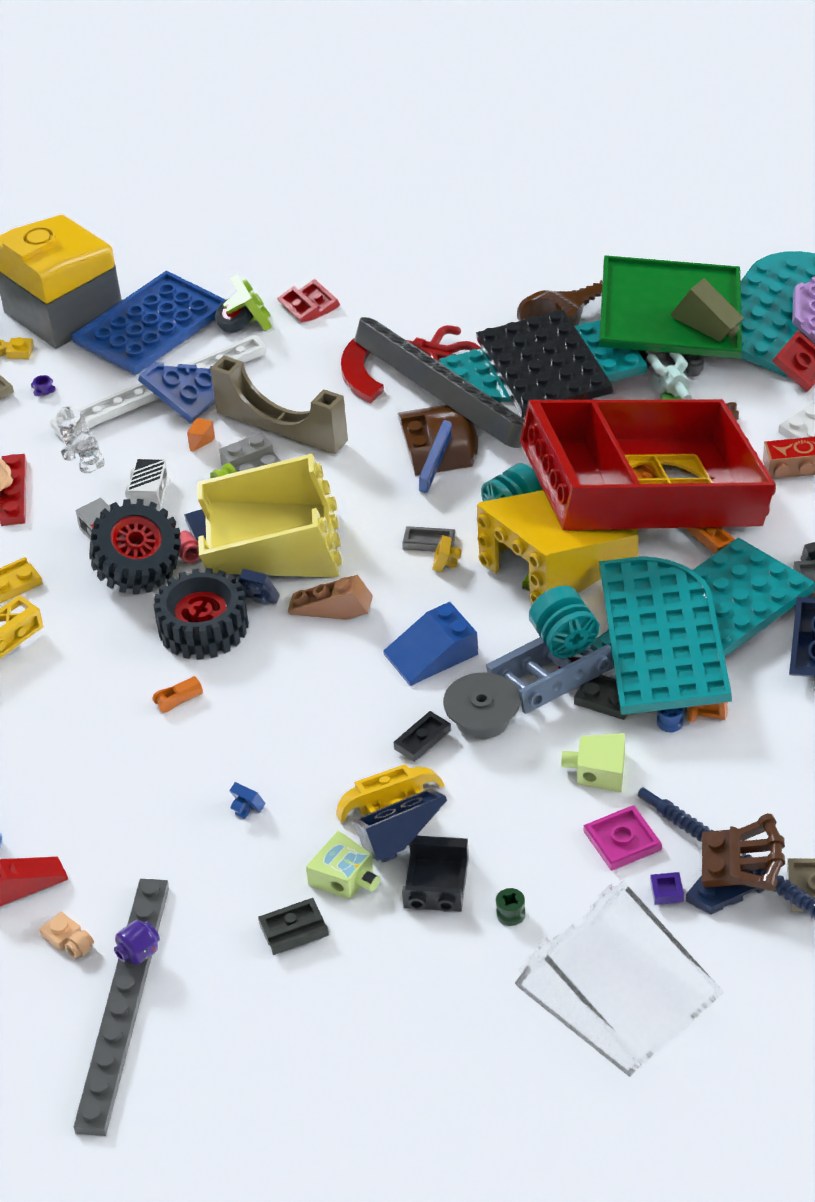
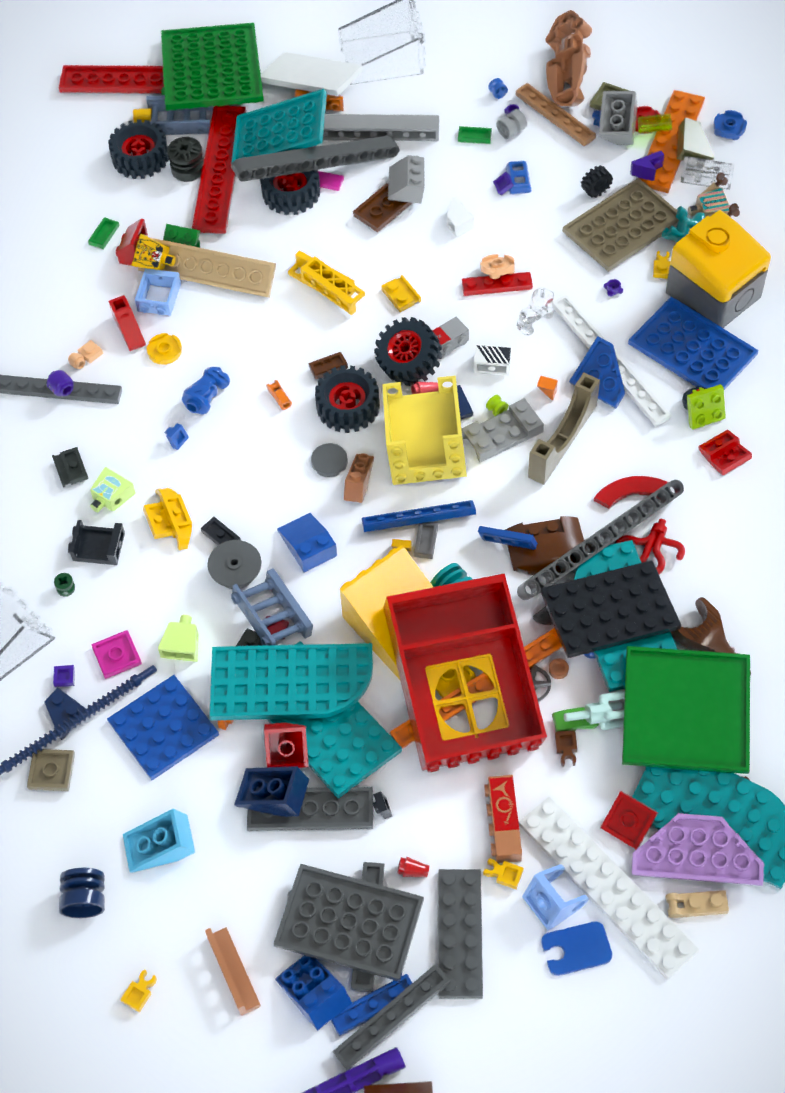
camera: 90 degrees right, 15 degrees up
(69, 837) = (164, 348): none -> yellow tile
(133, 644) = (325, 364): none -> reddish brown plate
(167, 772) = (199, 394): none -> blue animal
(258, 586) = (369, 428): dark blue wing -> none
(297, 636) = (329, 460): none -> dark grey tile
(395, 544) = (418, 516): none -> blue tile
(396, 825) = (128, 511): dark blue slope -> none
(563, 621) = (288, 607): teal wheel -> none
(708, 312) = (658, 731): olive slope -> none
(724, 849) = (68, 705): reddish brown plate -> none
(732, 774) = (163, 727): none -> blue plate
(757, 632) = (286, 745): none -> red slope

